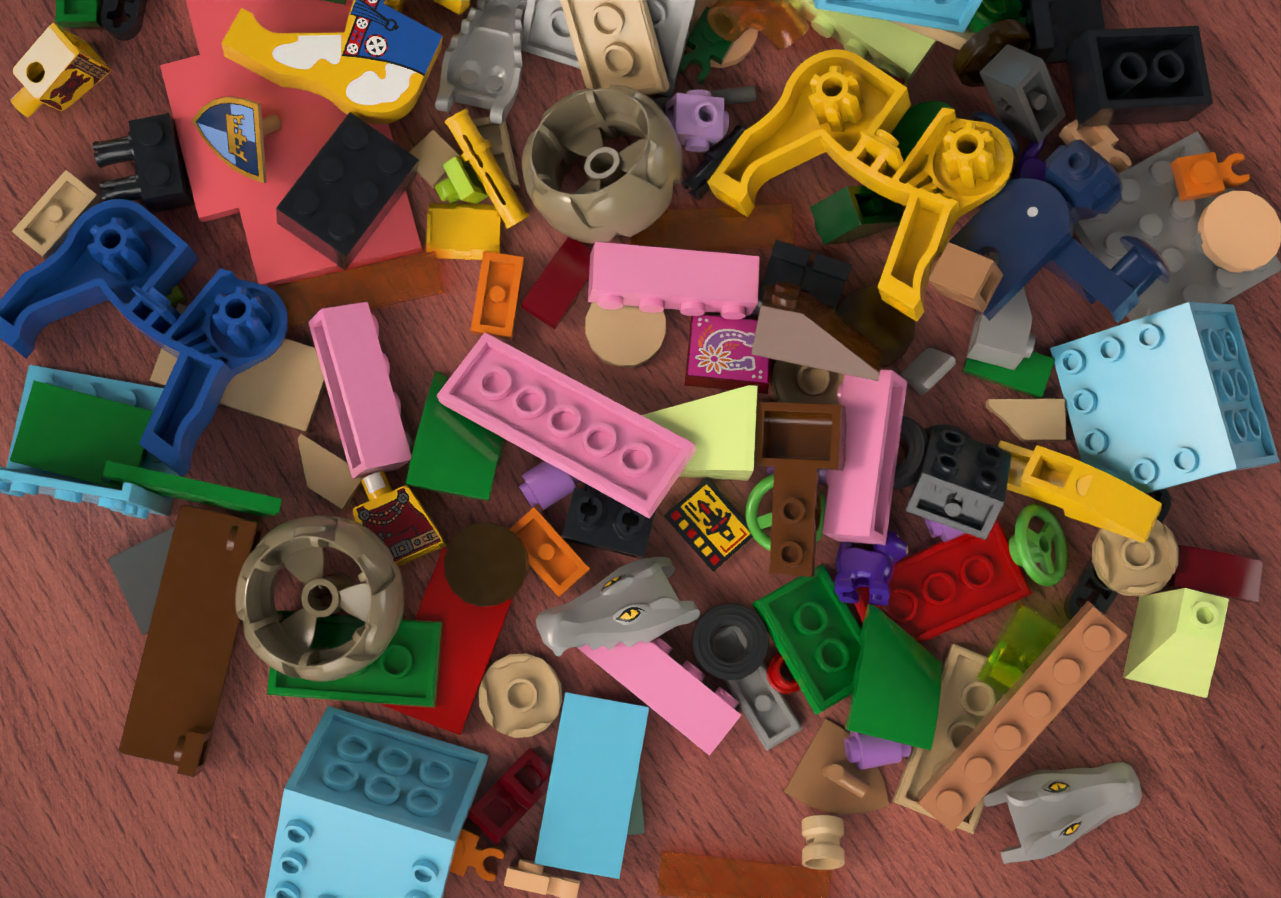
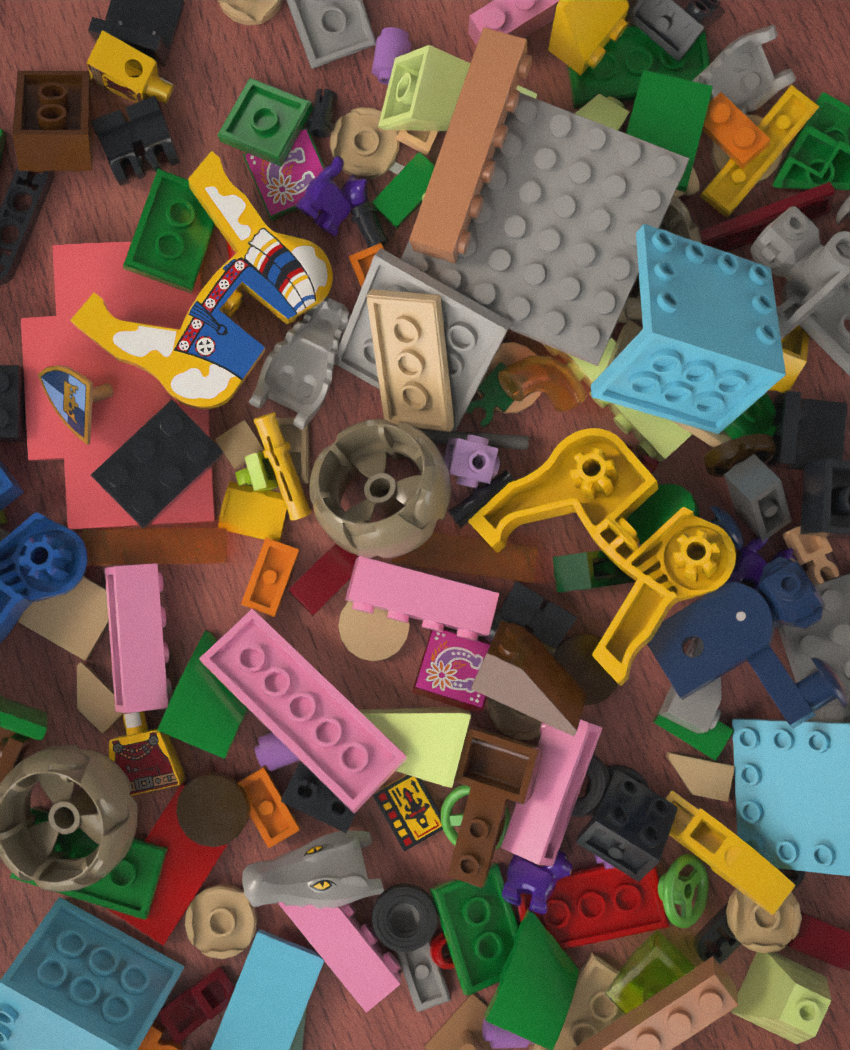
camera: 15 degrees right, 5 degrees up
(927, 369) = (623, 716): light grey slope -> none
(965, 276) = (668, 662): medium nougat brick -> none

